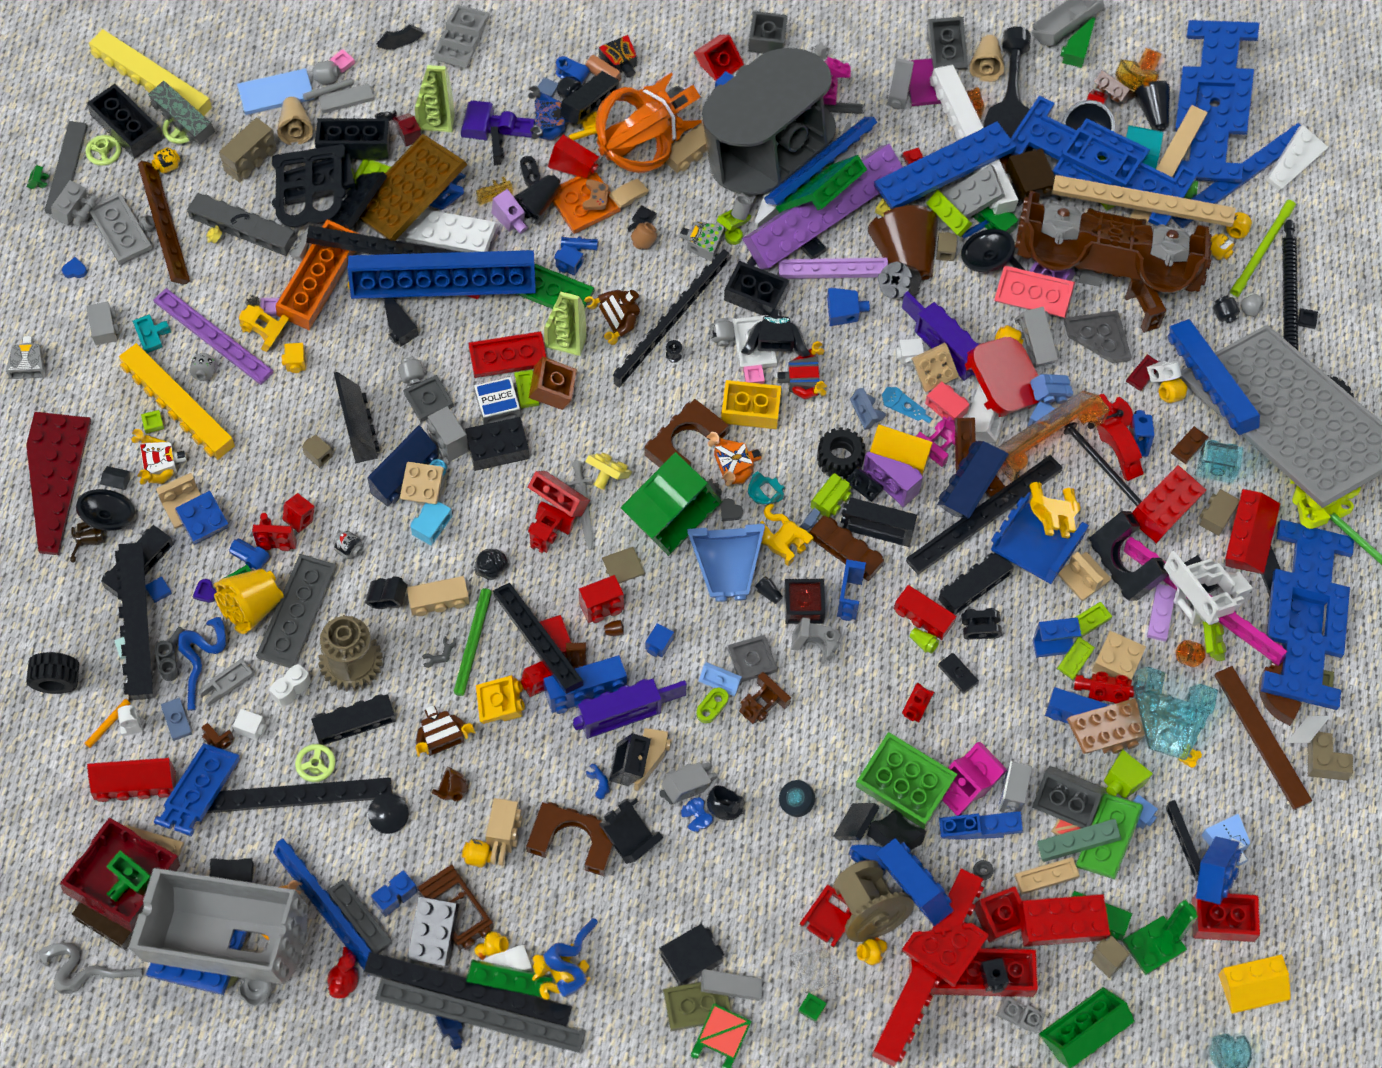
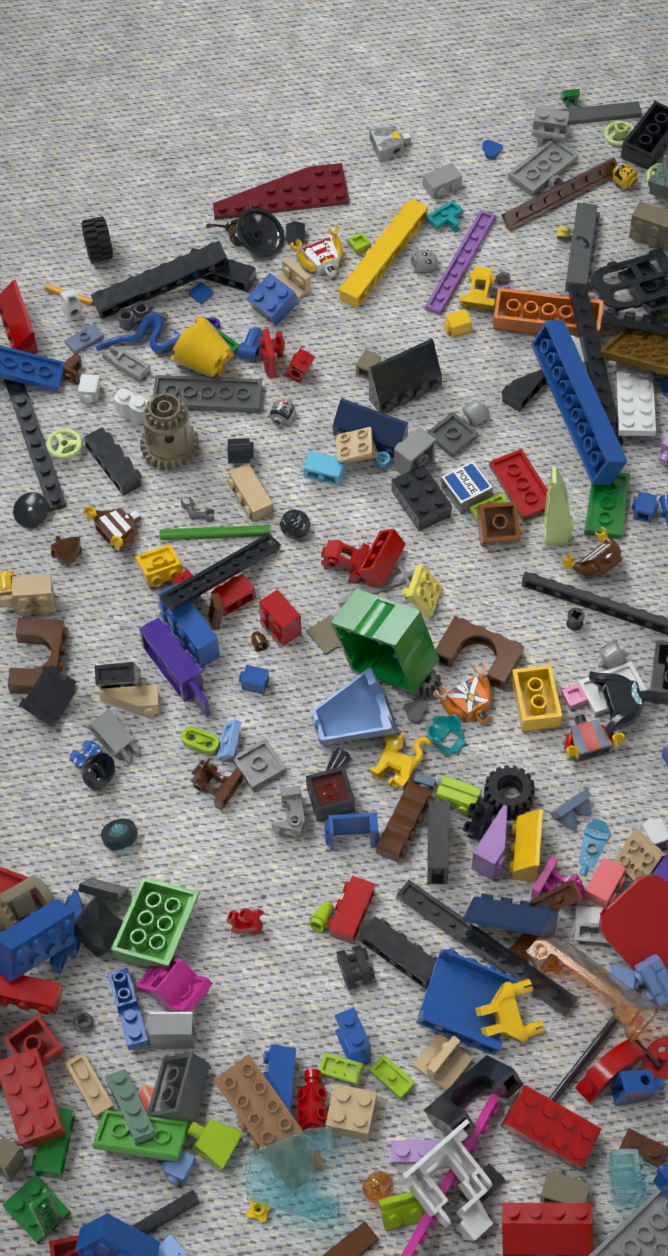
camera: 80 degrees right, 5 degrees down
(603, 787) = (89, 669): blue piece -> none
(958, 673) = (295, 957): black plate -> none

